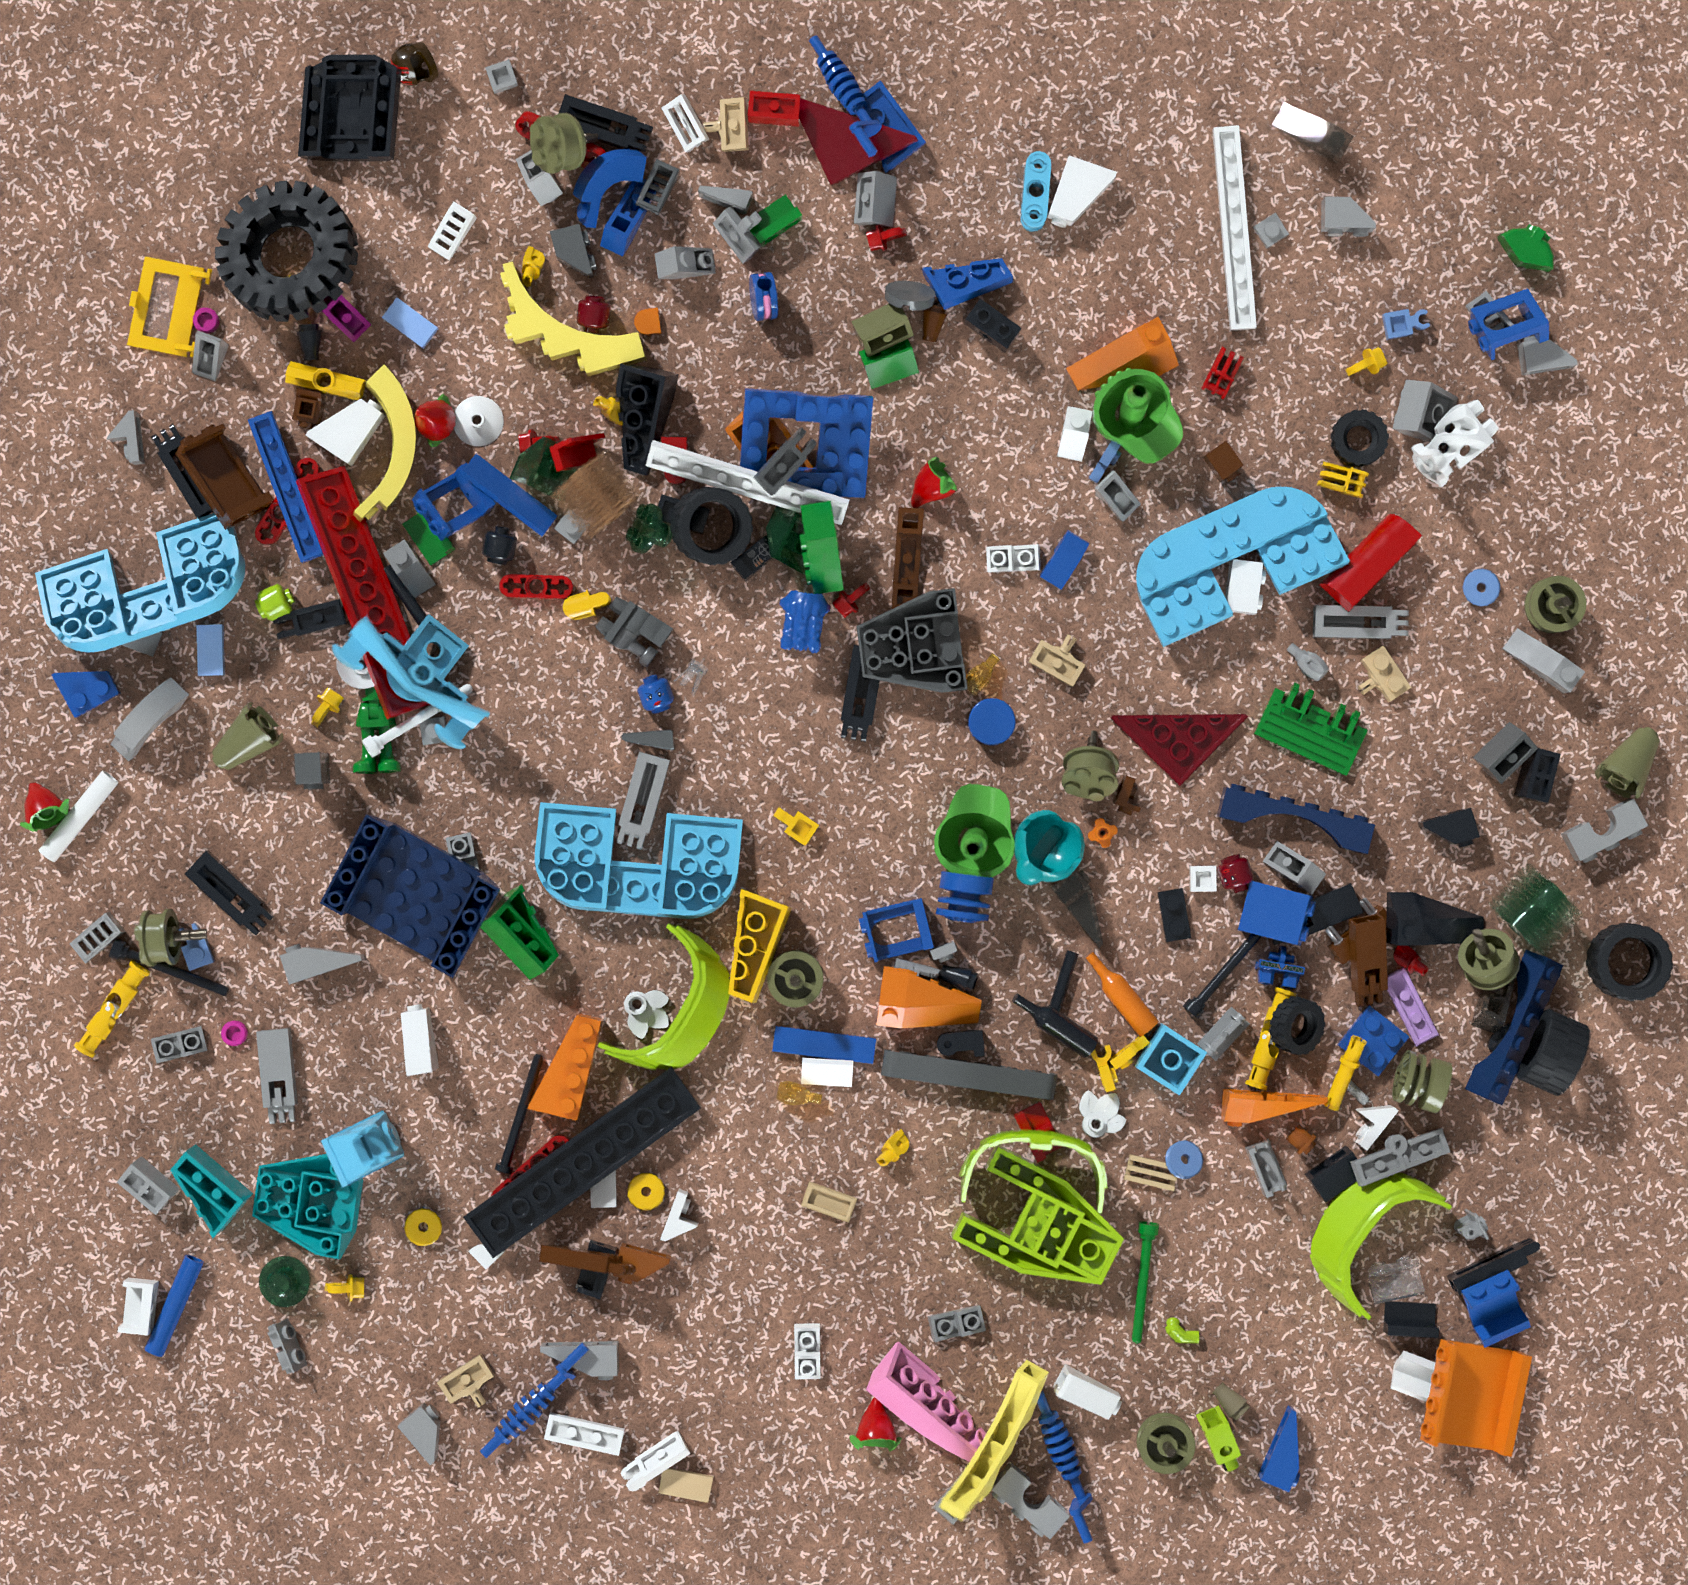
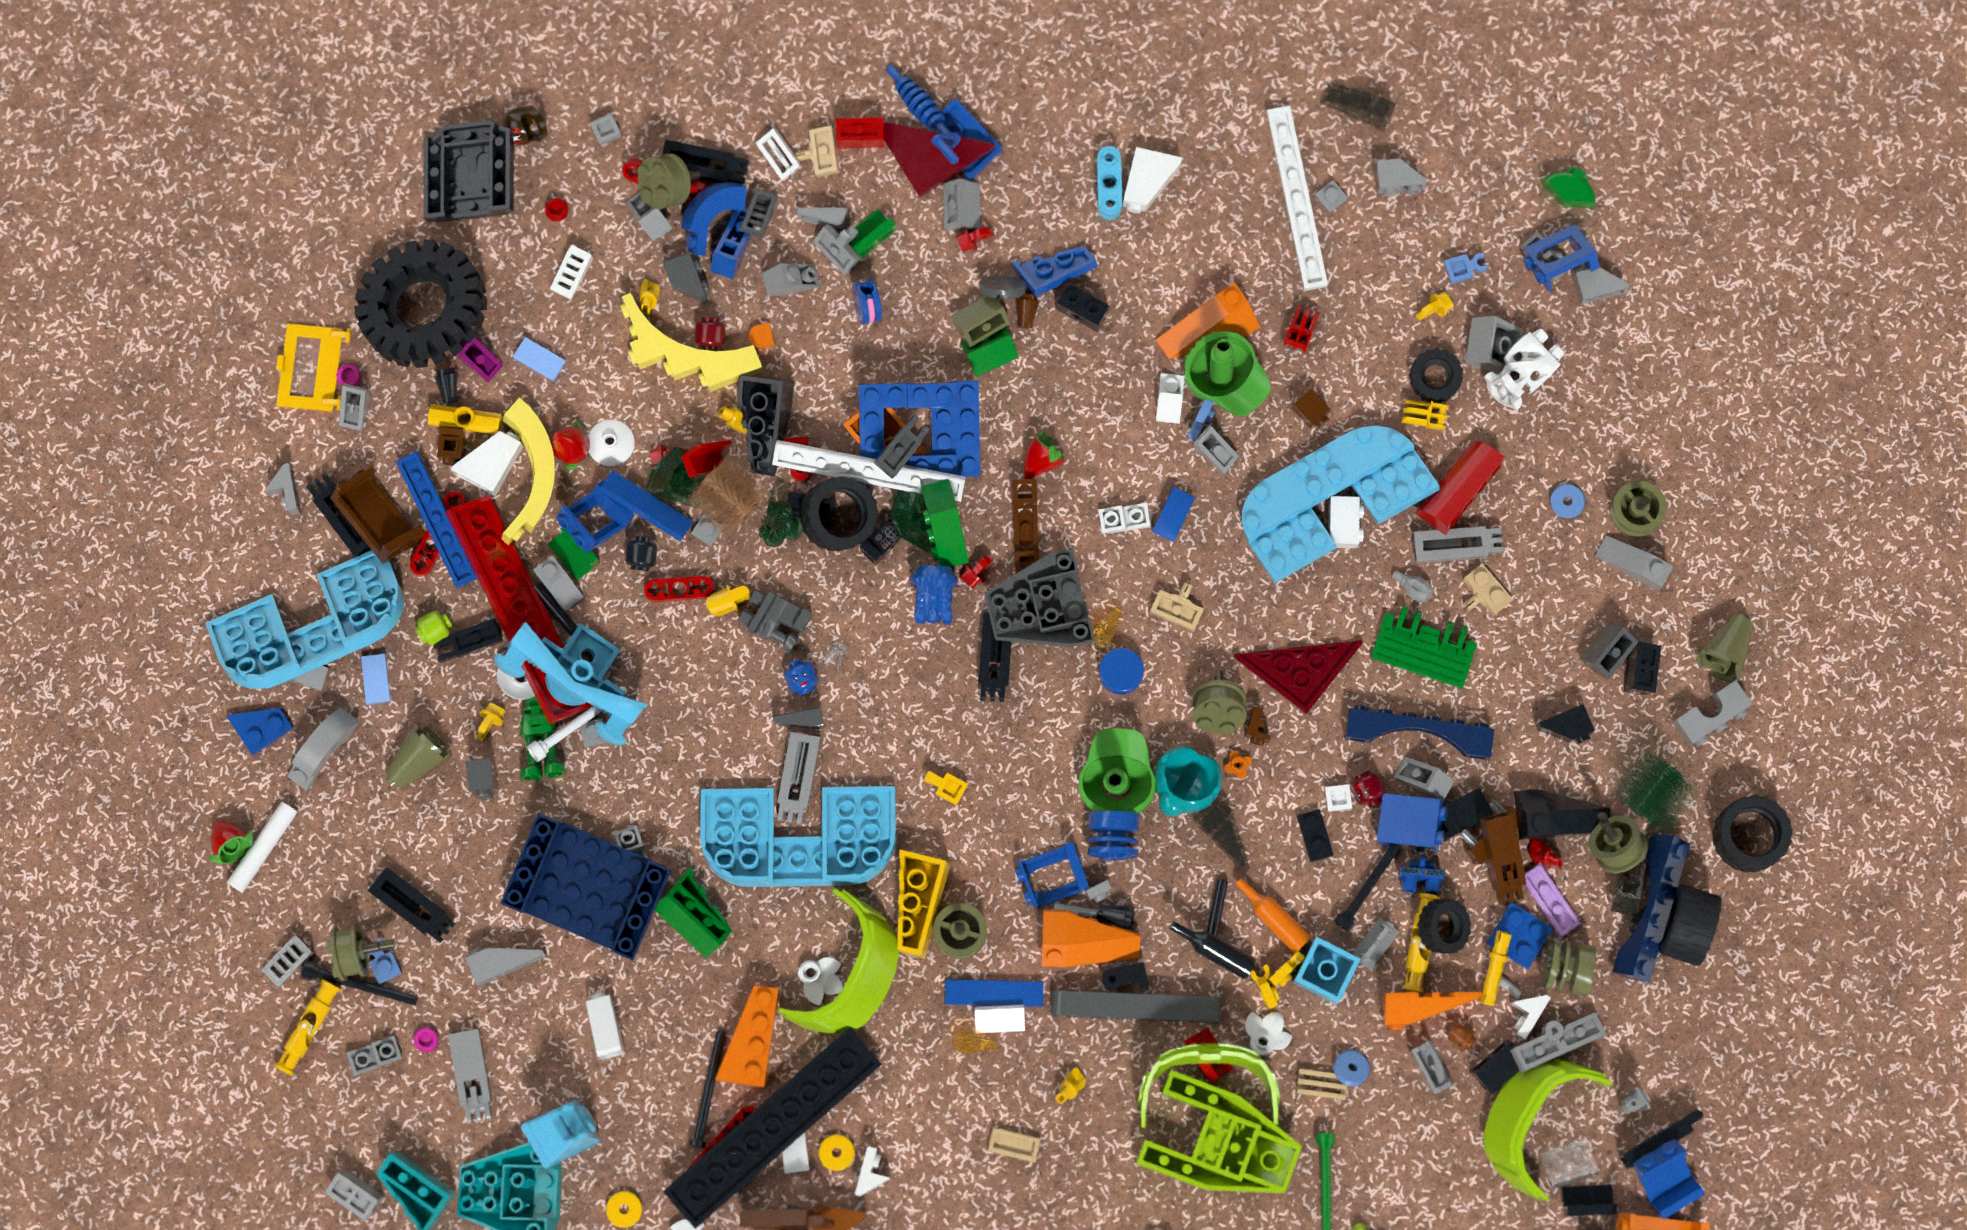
camera: 10 degrees left, 10 degrees down
(441, 160) = (556, 210): none -> red plate

